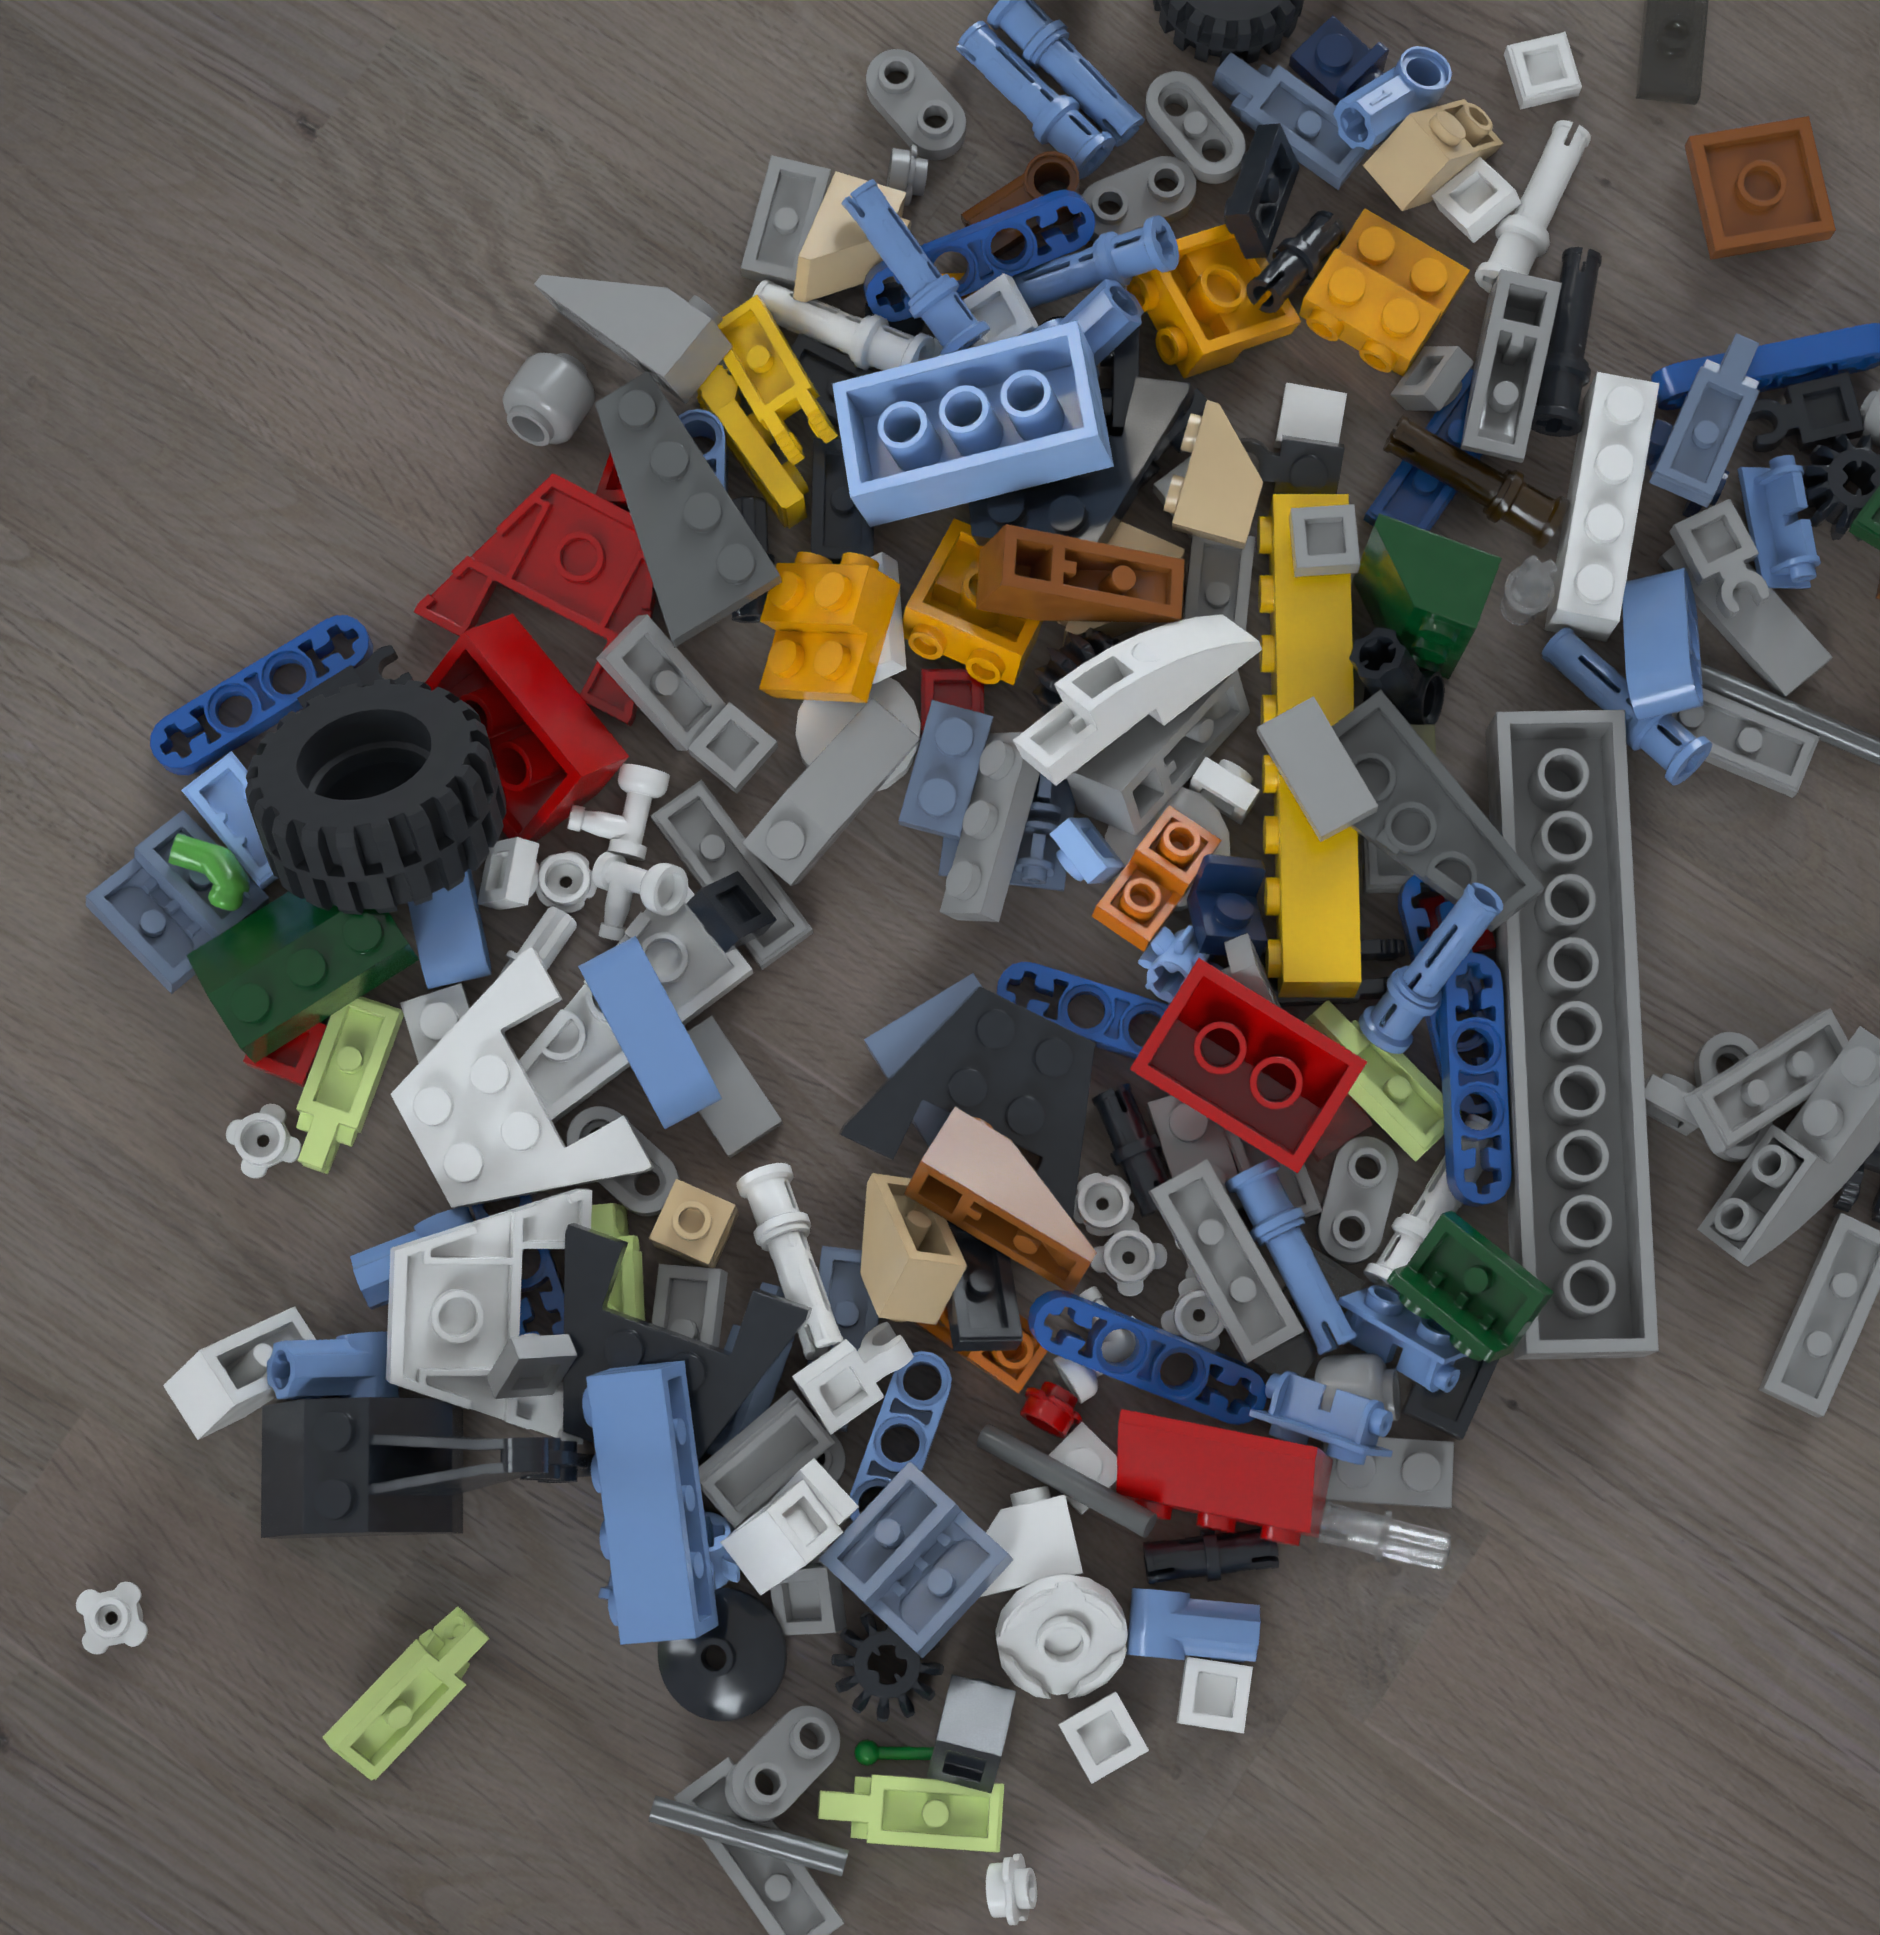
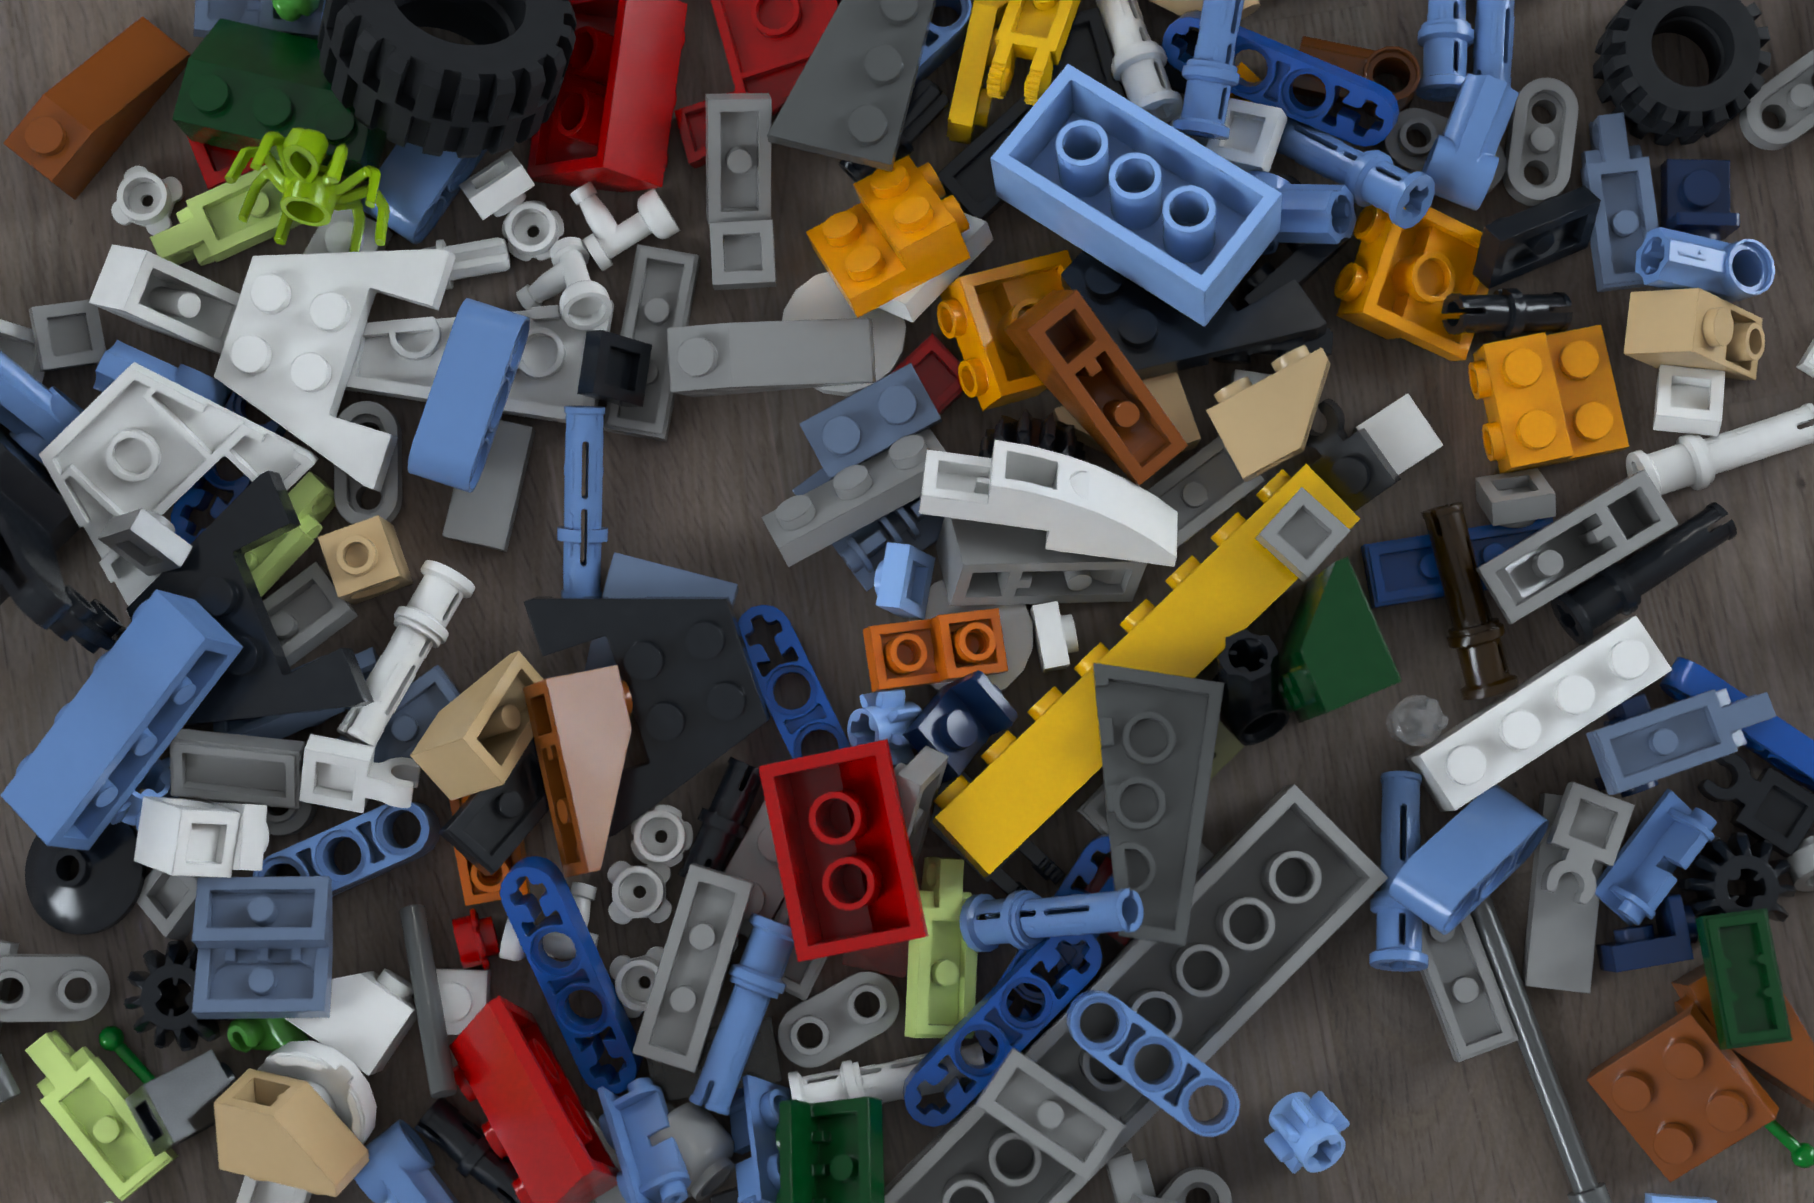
camera: 50 degrees right, 5 degrees up
(158, 1110) = (97, 106): none -> dark orange slope
(309, 1290) = (67, 335): none -> light grey plate
(356, 1190) = (165, 297): none -> white slope
(389, 996) = (308, 187): none -> lime animal
(804, 1028) = (584, 577): none -> medium blue pin
(972, 1630) = (262, 1034): none -> bright green arm
(1070, 1672) = (285, 1135): none -> tan slope
(1152, 170) = (1464, 155): none -> medium blue piece
(1317, 769) = (1115, 693): light grey tile -> none
(1574, 1096) = (1050, 1114): none -> light grey plate
(1630, 970) = (1175, 1086): none -> medium blue beam
(1750, 941) = (1306, 1132): none -> light blue gear
(1842, 573) = (1640, 948): none -> dark blue bracket

